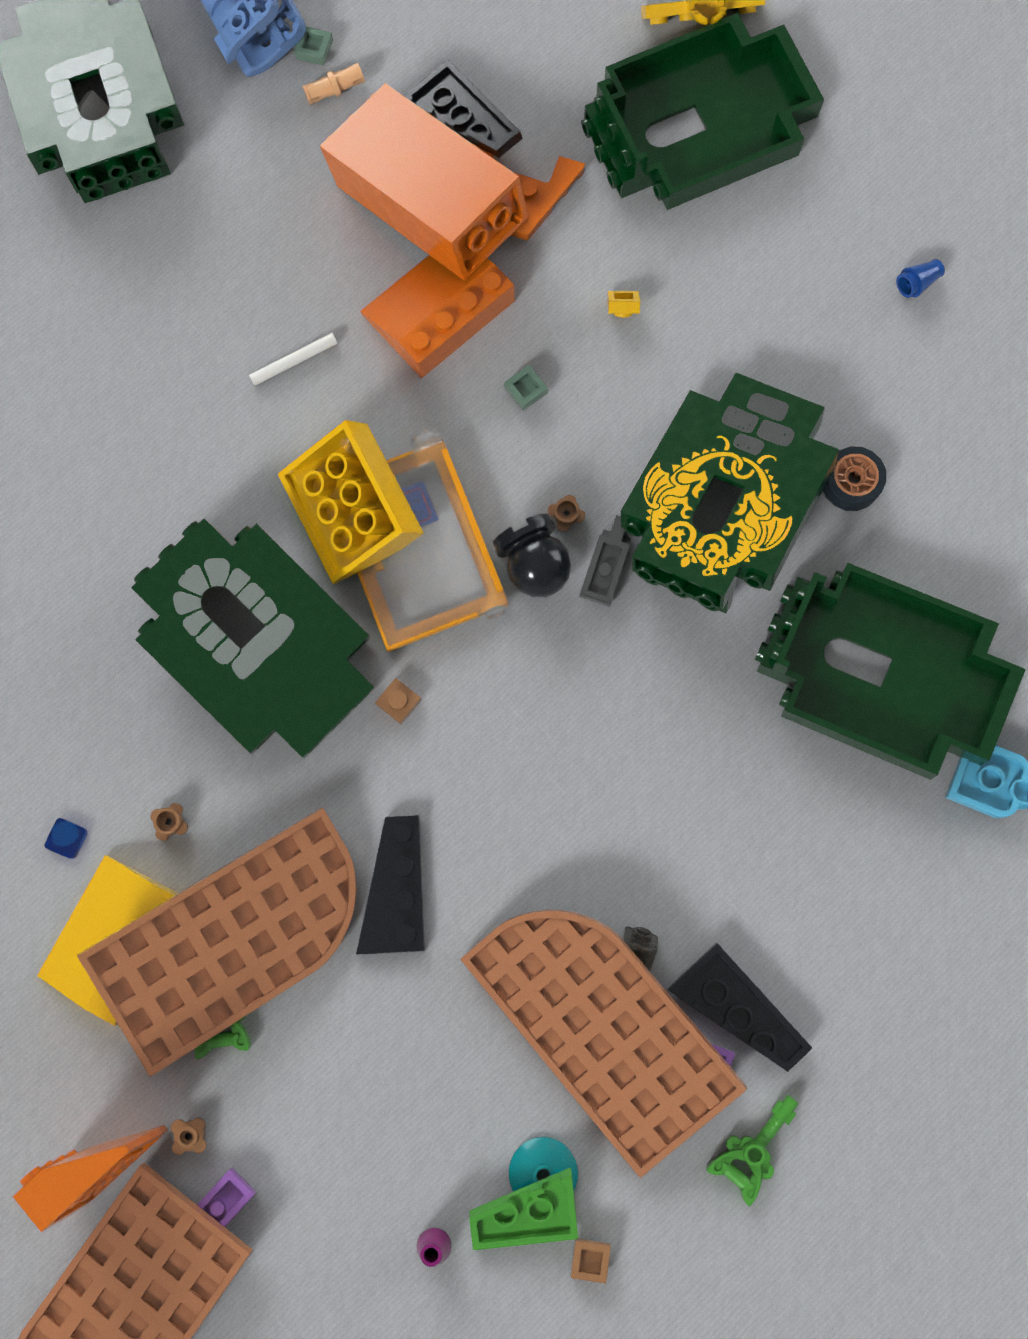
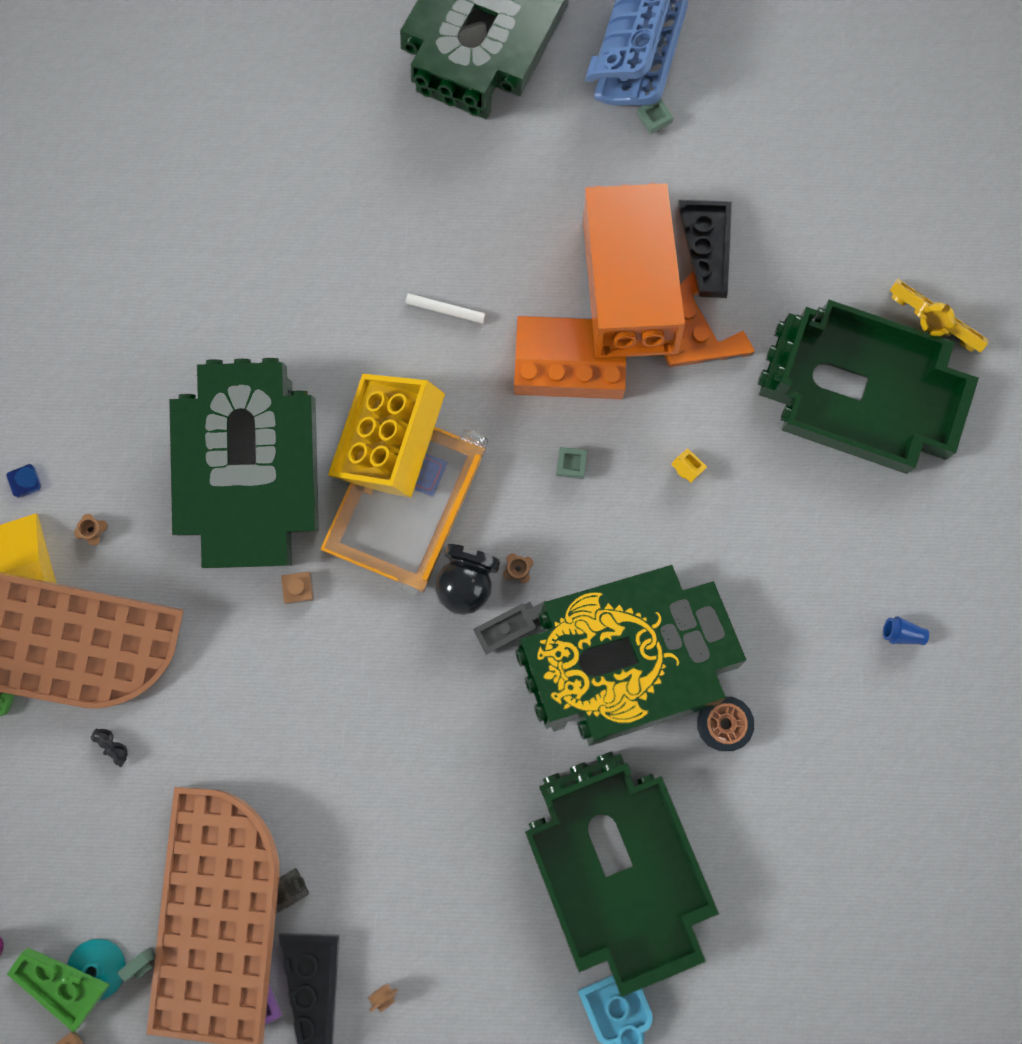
camera: 40 degrees right, 0 degrees up
(333, 83) = (643, 152): light nougat pin -> none
(376, 980) = (115, 750): none -> black piece
(395, 898) = (173, 711): black wing -> none
(577, 1131) = (138, 966): none -> sand green plate
(801, 955) = (382, 998): none -> medium nougat plate

